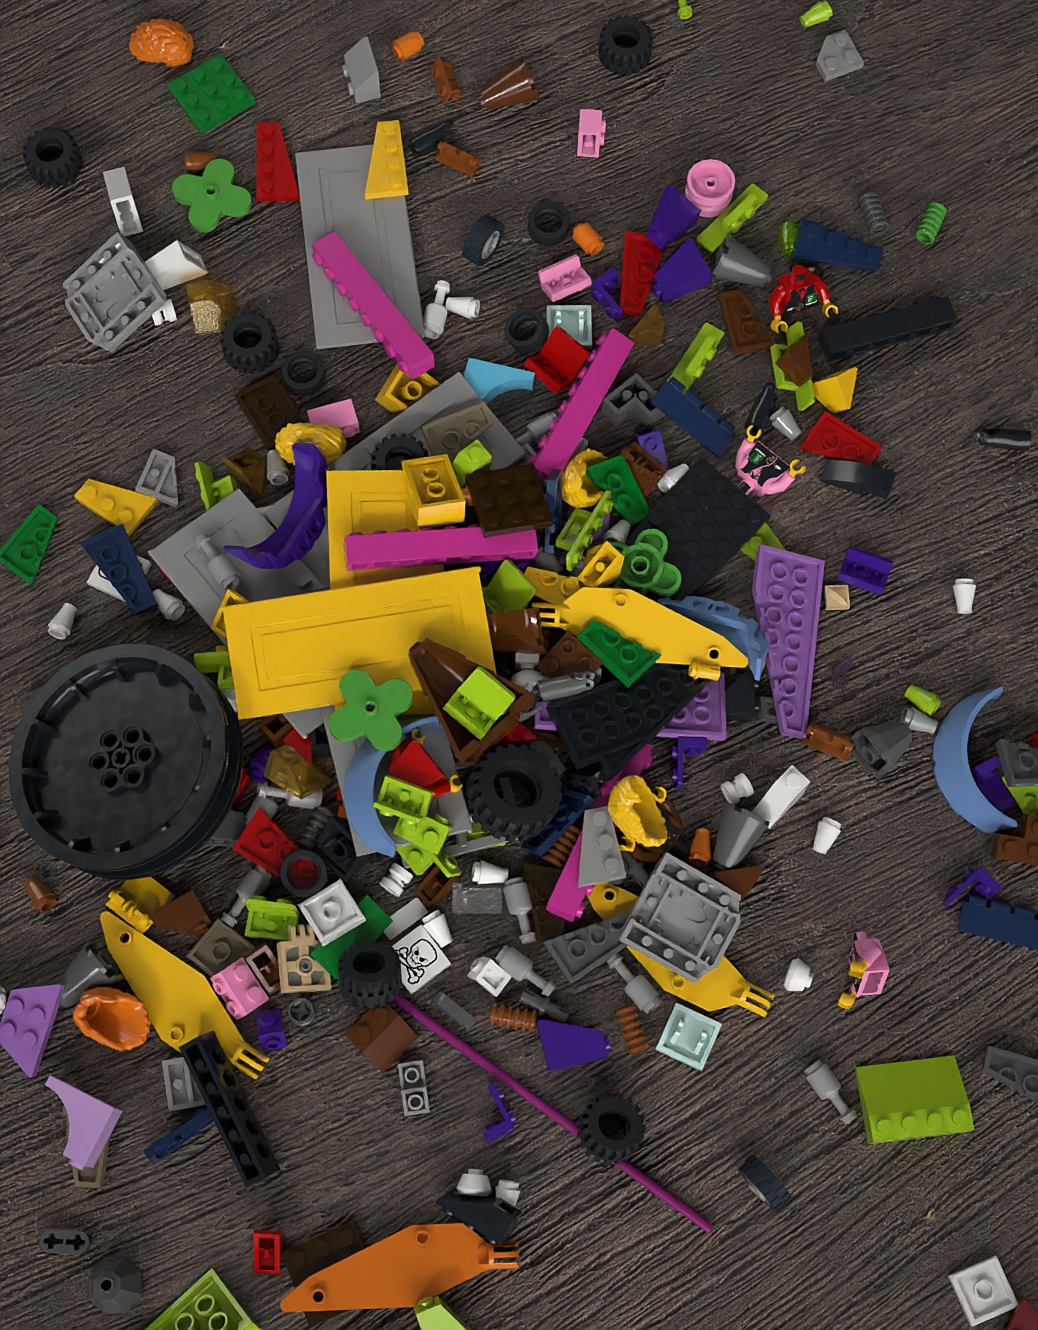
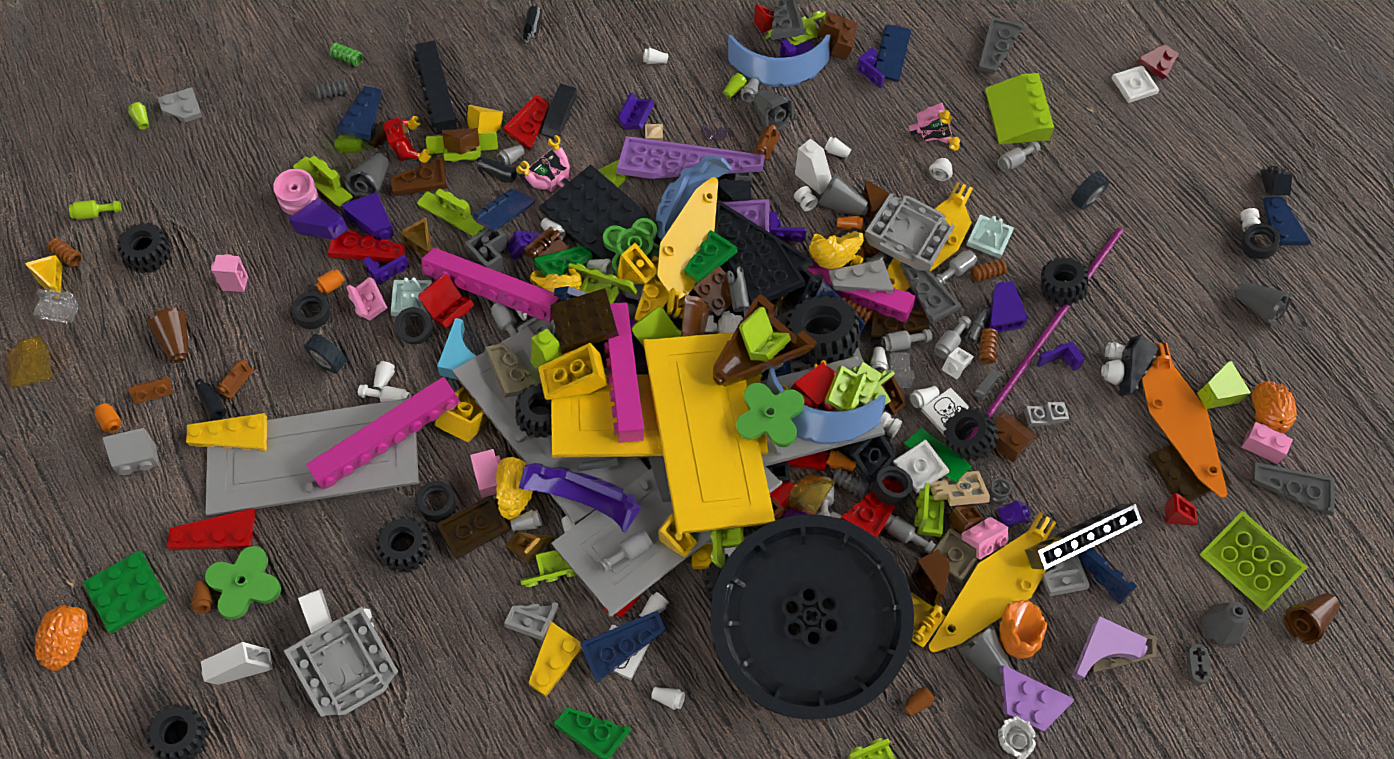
camera: 90 degrees left, 10 degrees down
(210, 305) = (361, 581): clear yellow slope -> none
(405, 917) = (914, 421): white sticker -> none
(705, 671) = (721, 206): yellow pin -> none

